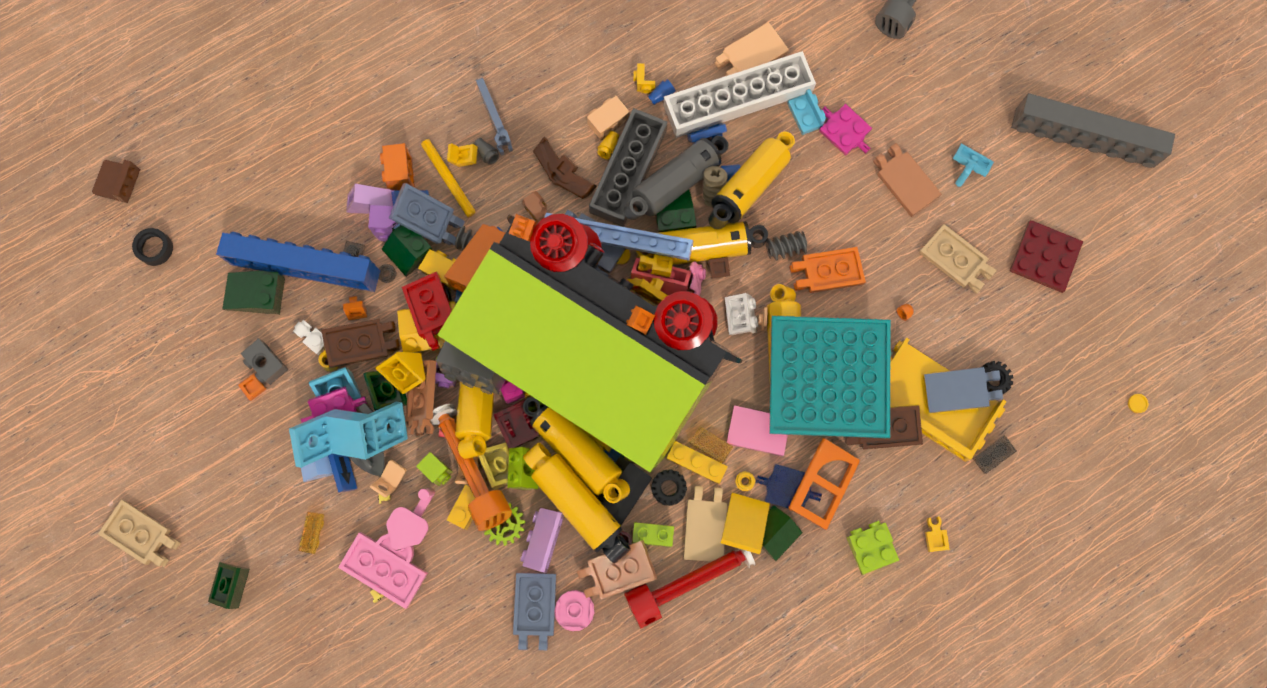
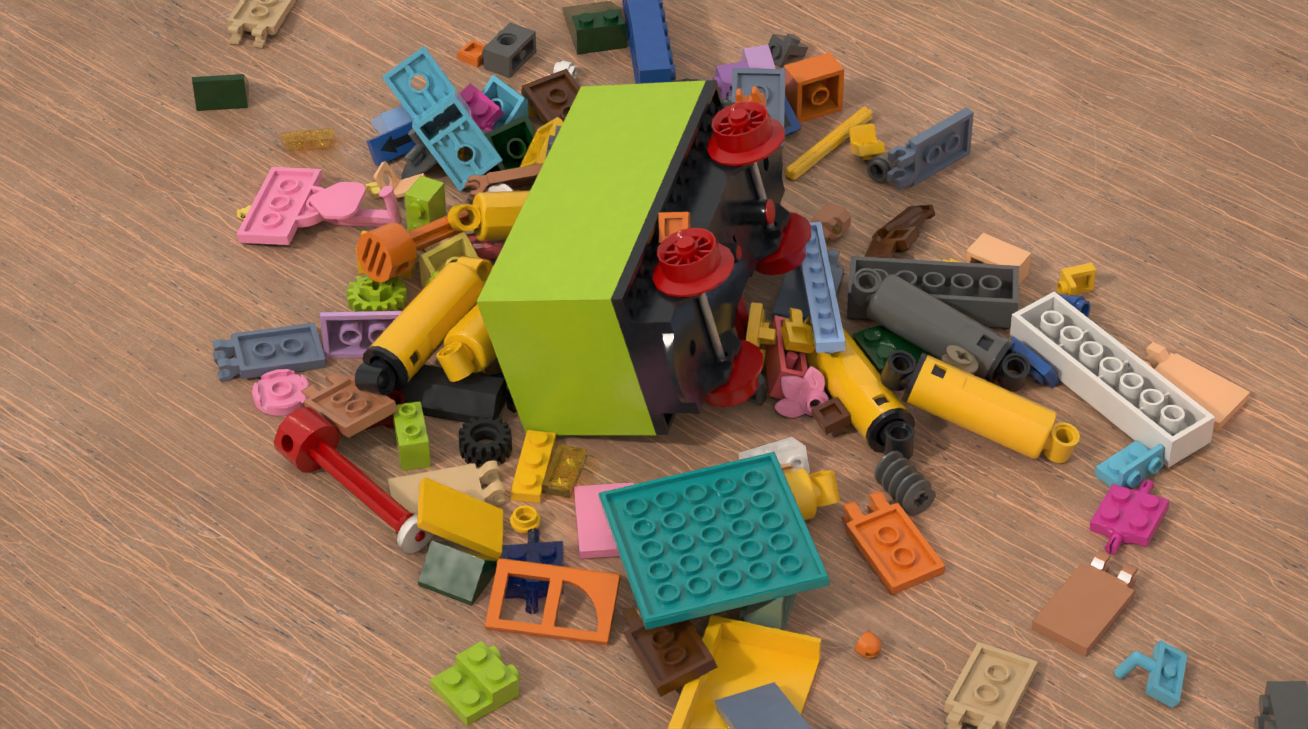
camera: 75 degrees right, 35 degrees down
(336, 172) = (784, 45): none -> dark grey bracket

